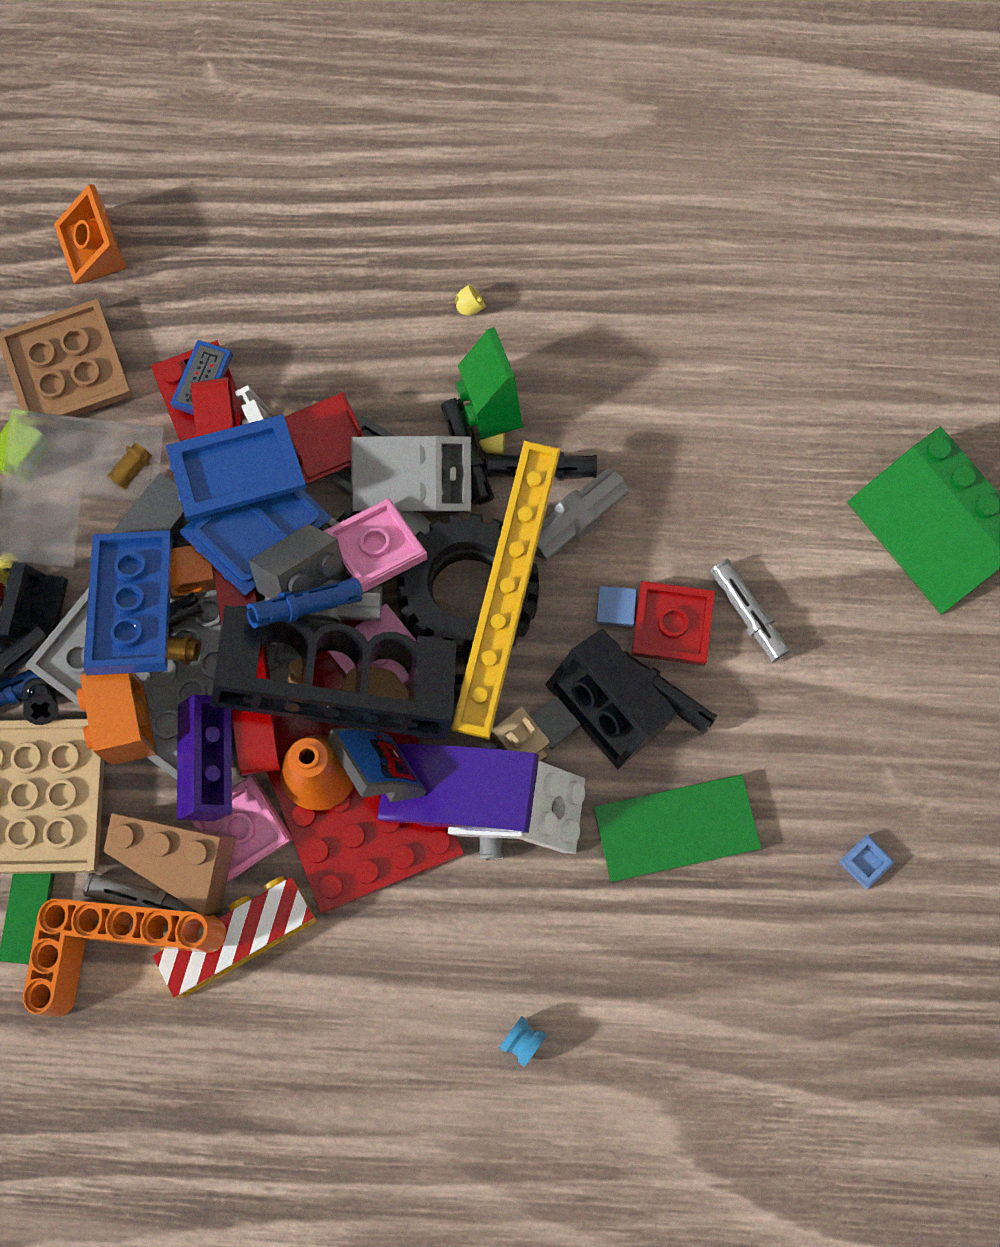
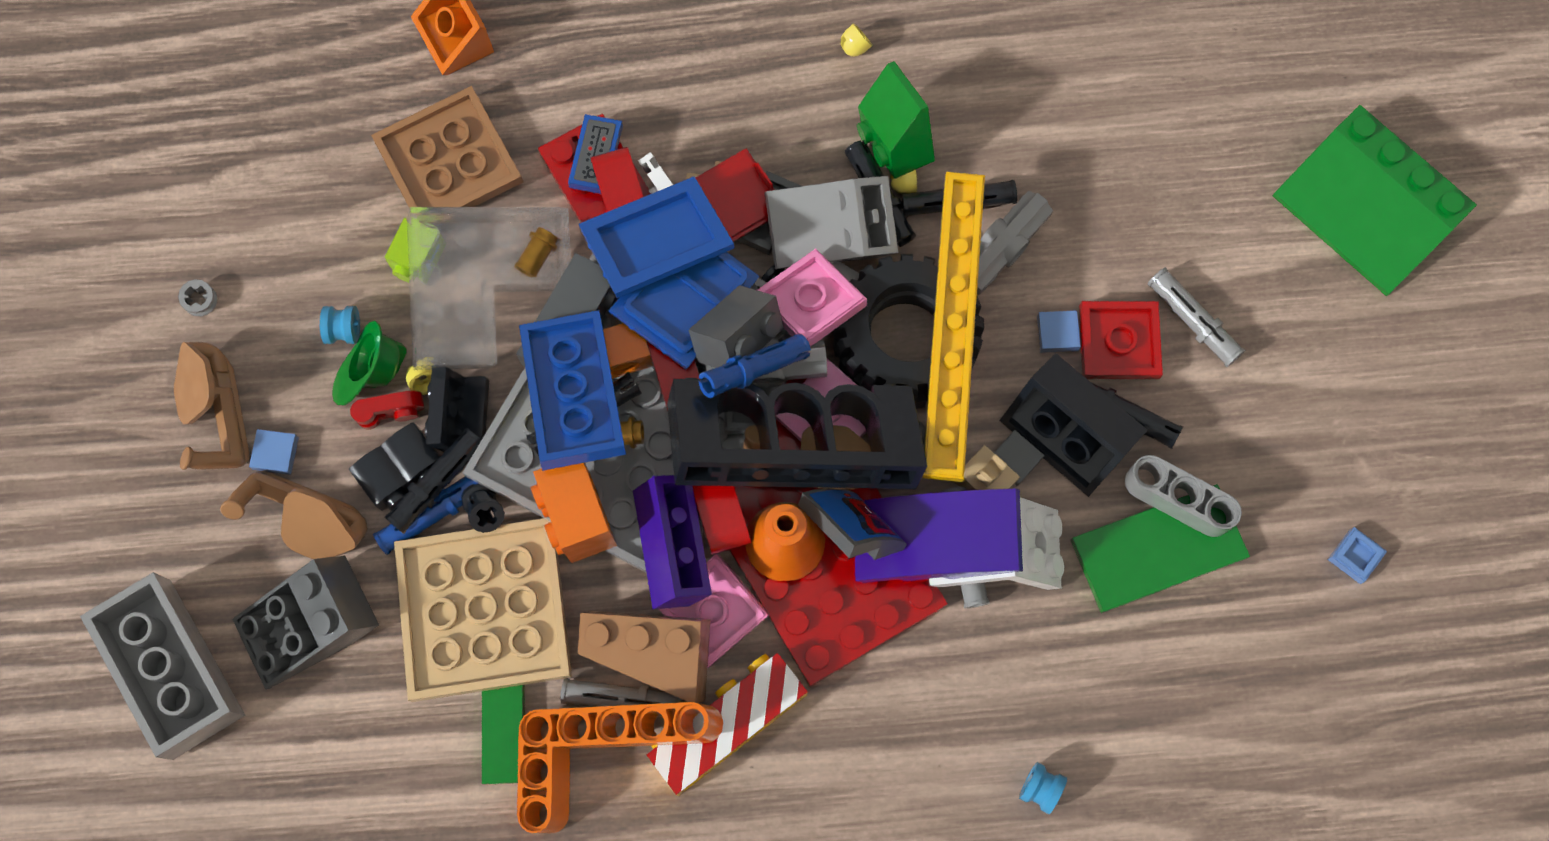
camera: 10 degrees left, 0 degrees up
(695, 763) = (1202, 496): none -> light grey beam

